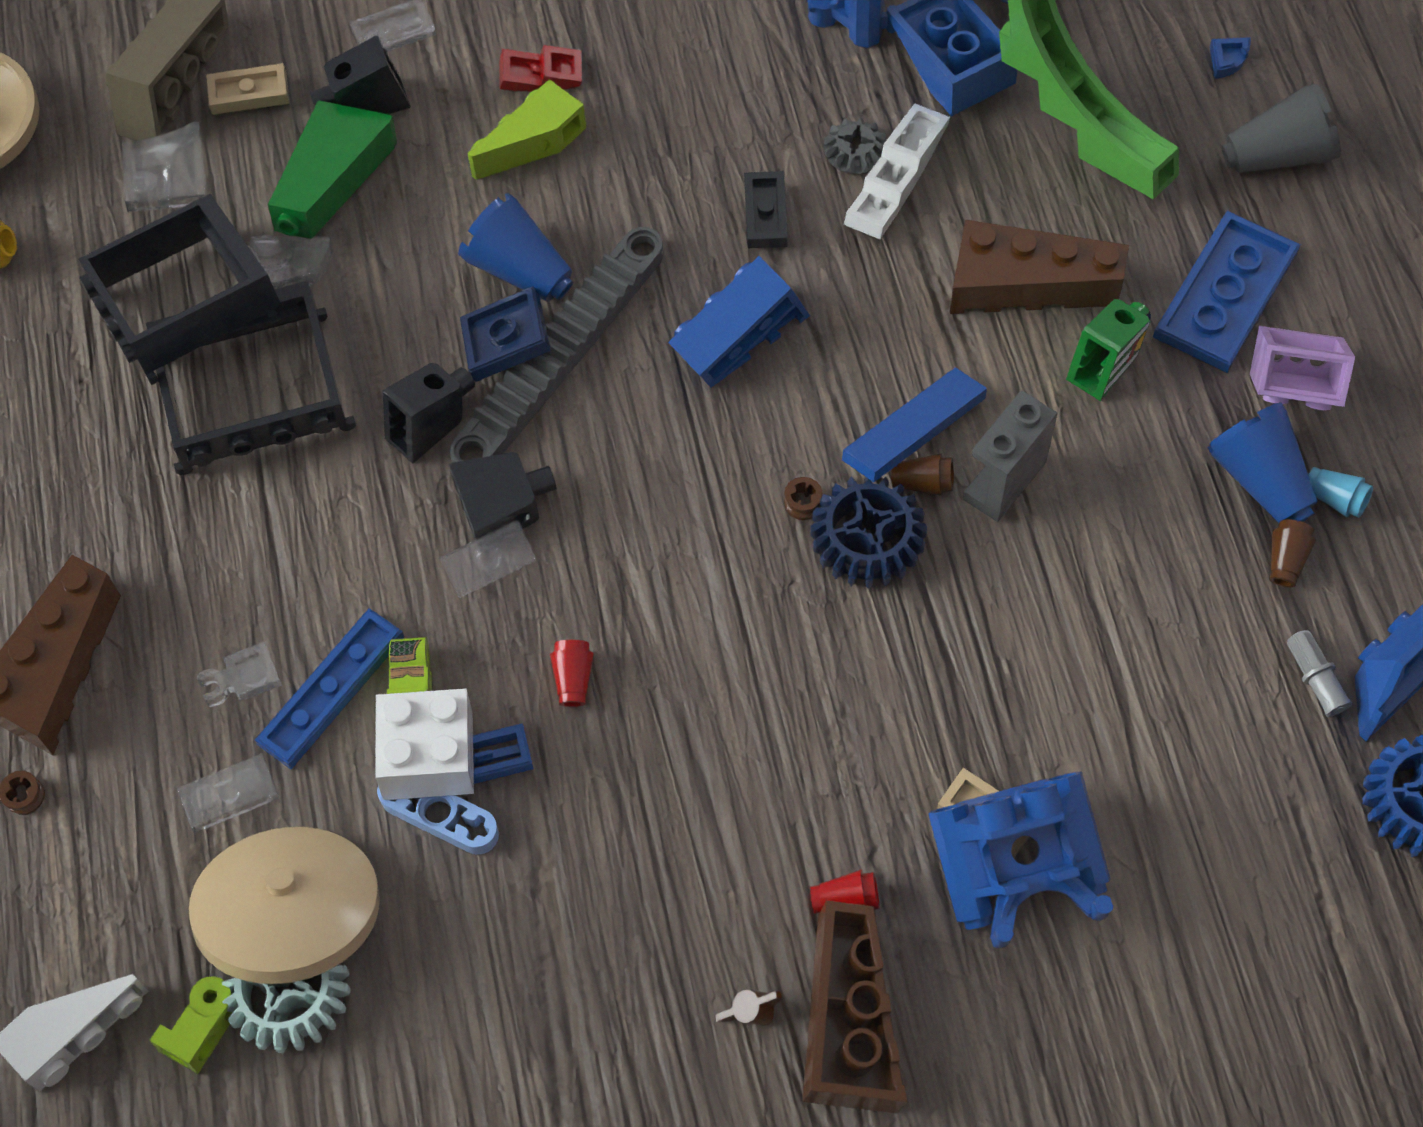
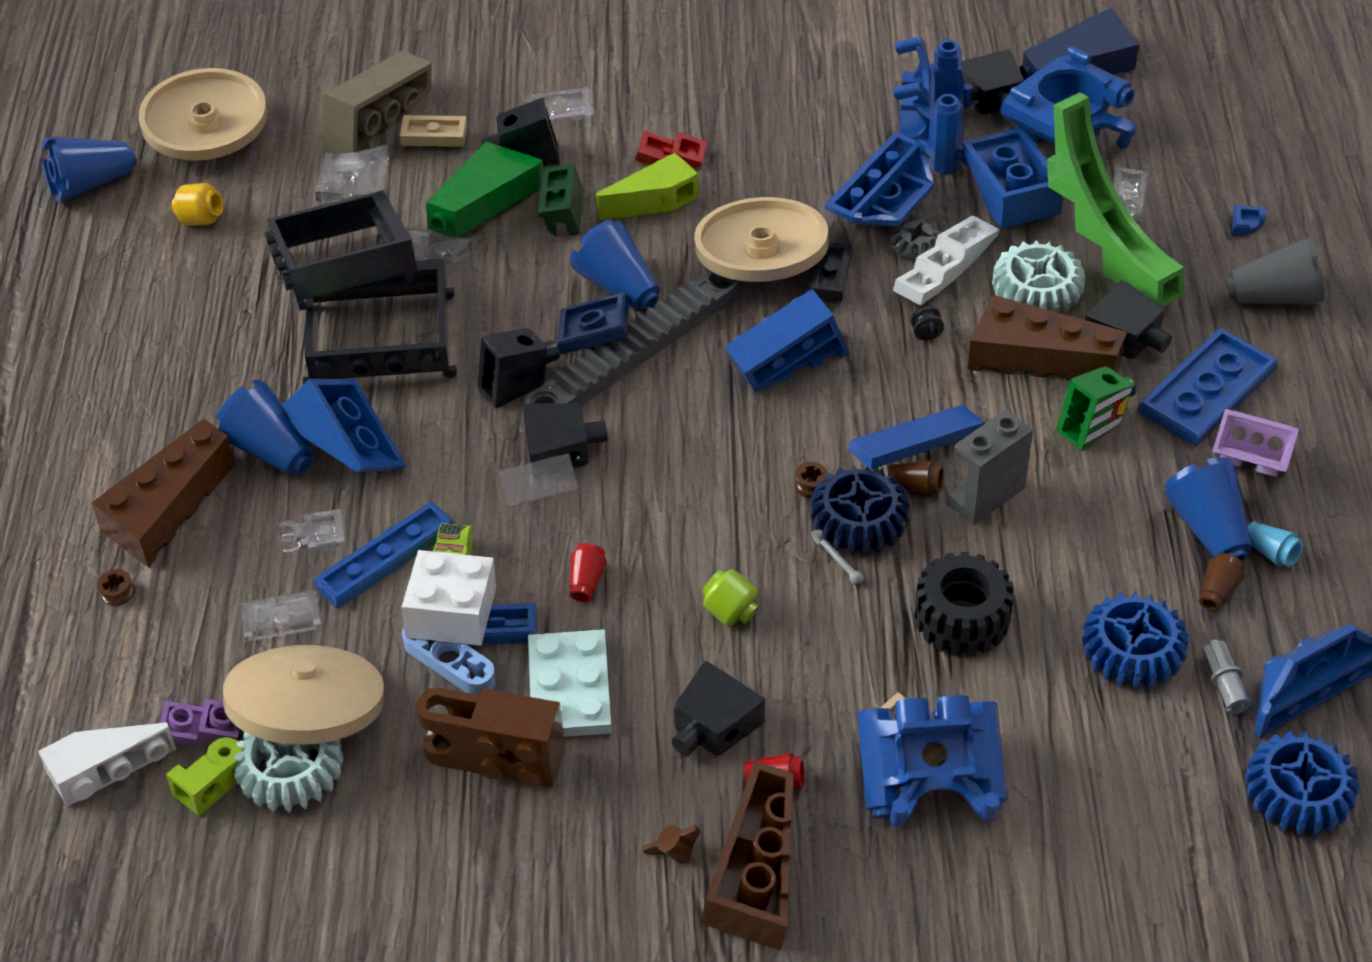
camera: 10 degrees right, 15 degrees down
(149, 552) = (262, 428): none -> blue cone
(164, 957) = (198, 724): none -> medium lavender slope
(244, 535) = (343, 424): none -> blue slope
(425, 162) = (561, 198): none -> dark green hinge
(519, 916) = (494, 734): none -> reddish brown brick
(585, 821) = (575, 673): none -> light aqua plate
(678, 183) = (761, 239): none -> tan dish
(746, 677) = (730, 597): none -> lime head
(761, 831) = (715, 712): none -> black torso
(810, 85) = (885, 185): none -> blue wedge
(880, 618) = (855, 577): none -> light grey hinge
(893, 263) = (927, 323): none -> black bush
(993, 165) = (1040, 277): none -> light aqua gear
(1019, 606) = (965, 580): none -> black tyre
(1091, 36) = (1131, 189): none -> clear plate
(1127, 217) = (1134, 313): none -> black torso
(1246, 647) = (1153, 655): none -> blue gear

